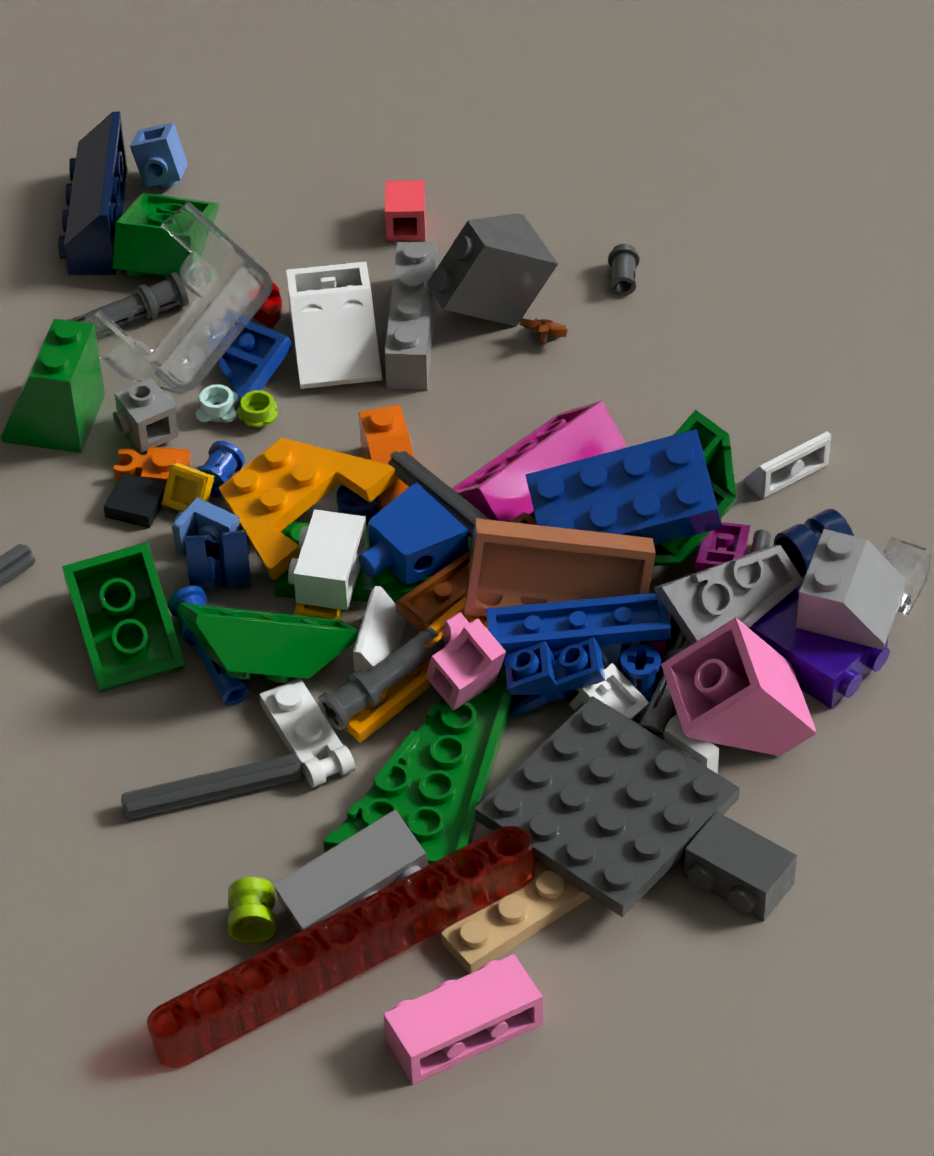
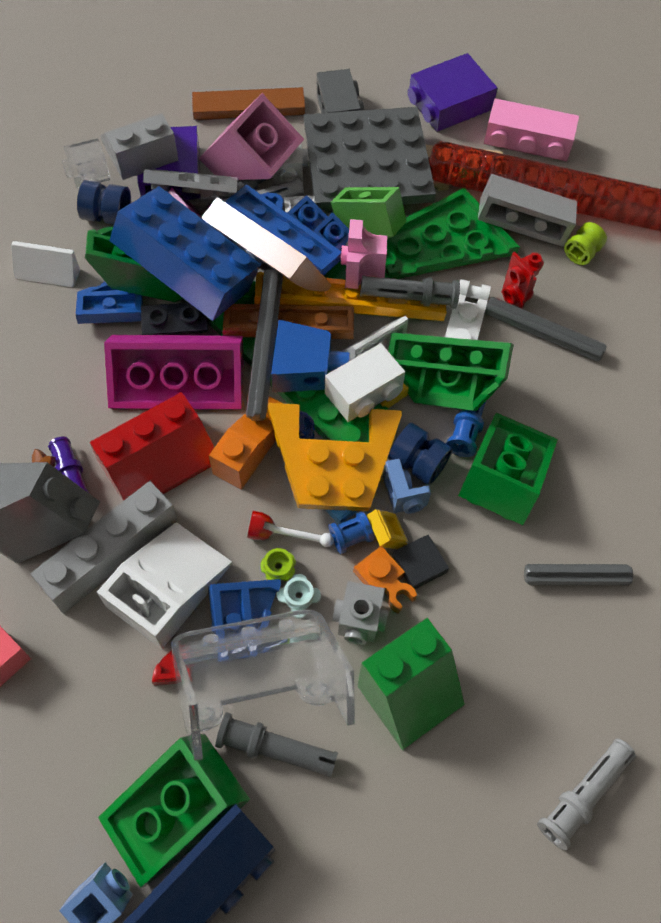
camera: 140 degrees left, 15 degrees up
(276, 779) = (521, 278): none -> red hinge
(303, 421) = (263, 526): none -> hinge
(465, 402) = (156, 446): none -> red slope
(514, 712) = (377, 206): none -> bright green brick
(521, 342) = (65, 460): none -> dark purple pin
(619, 995) = (452, 92): none -> dark purple brick
(846, 794) = (233, 102): none -> dark orange tile

